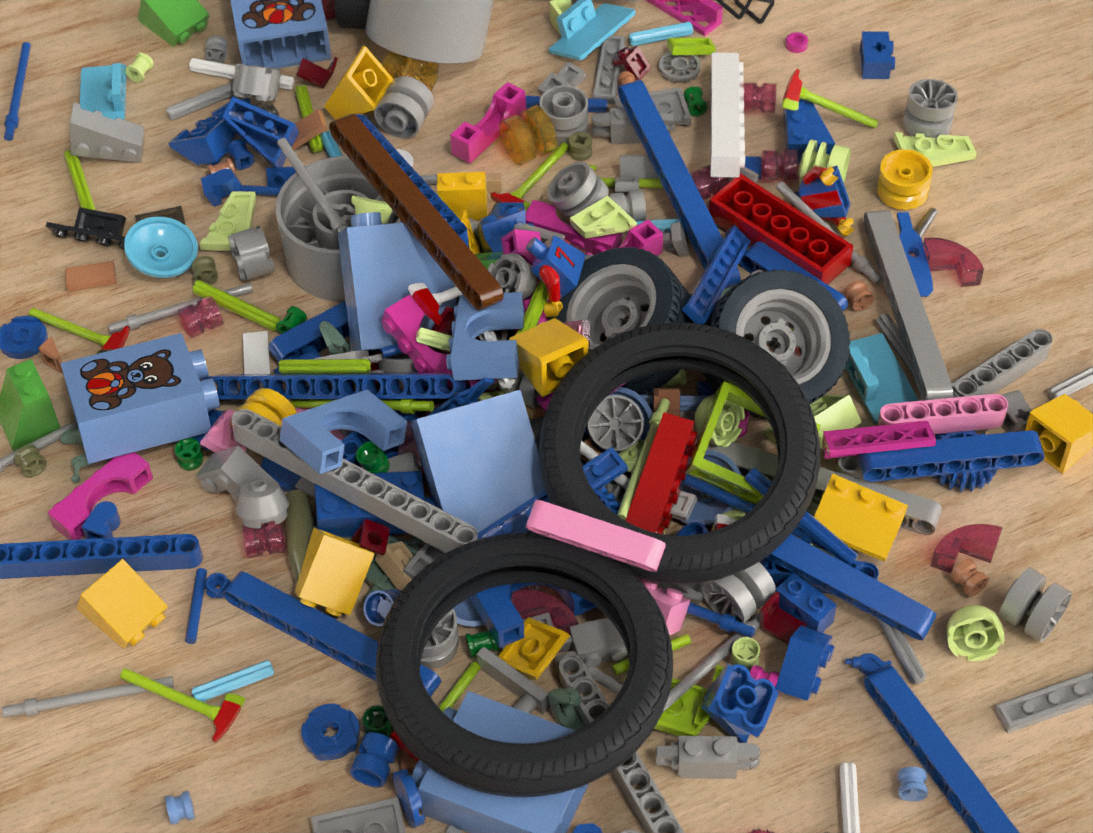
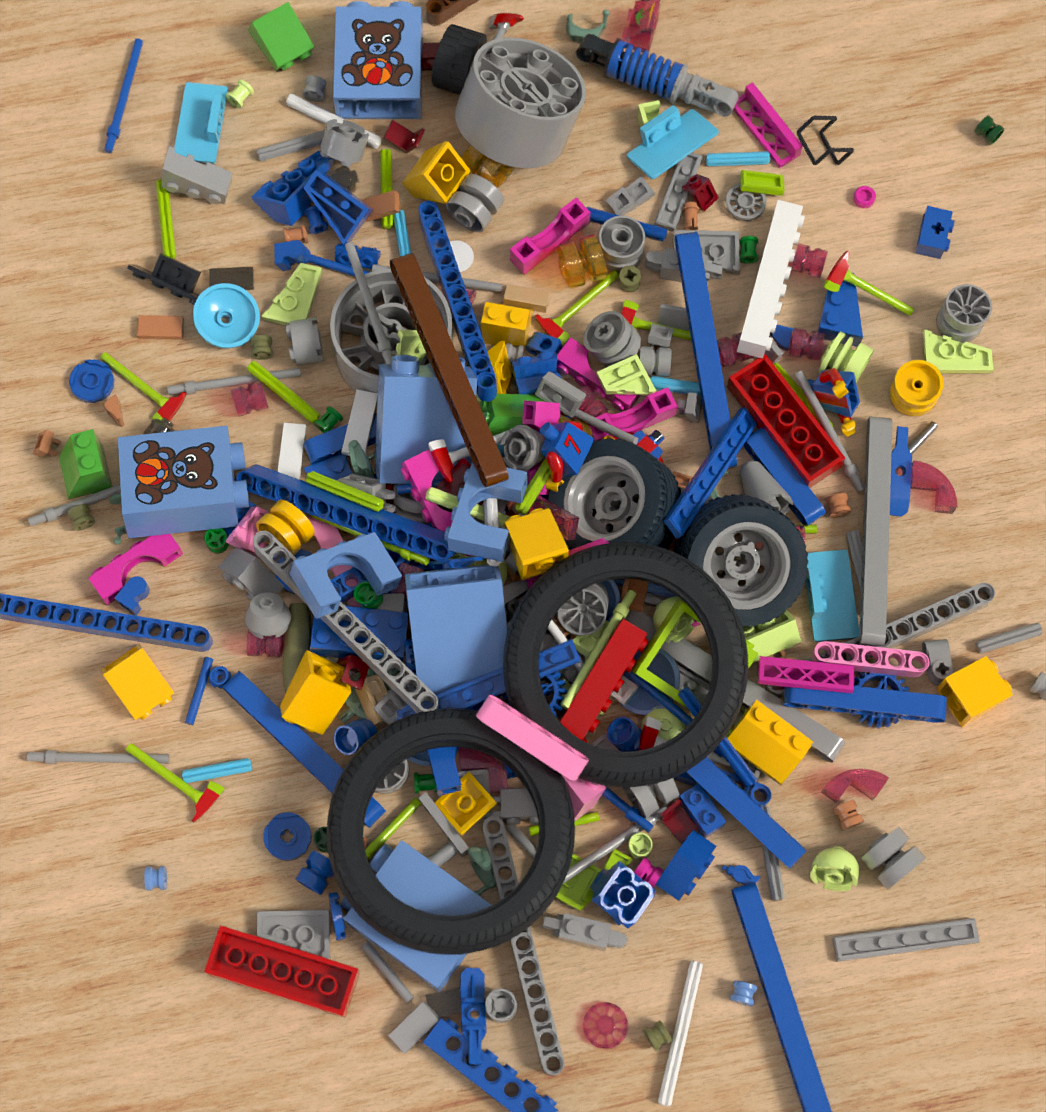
camera: 10 degrees right, 20 degrees up
(326, 307) = (360, 419): none -> white tile

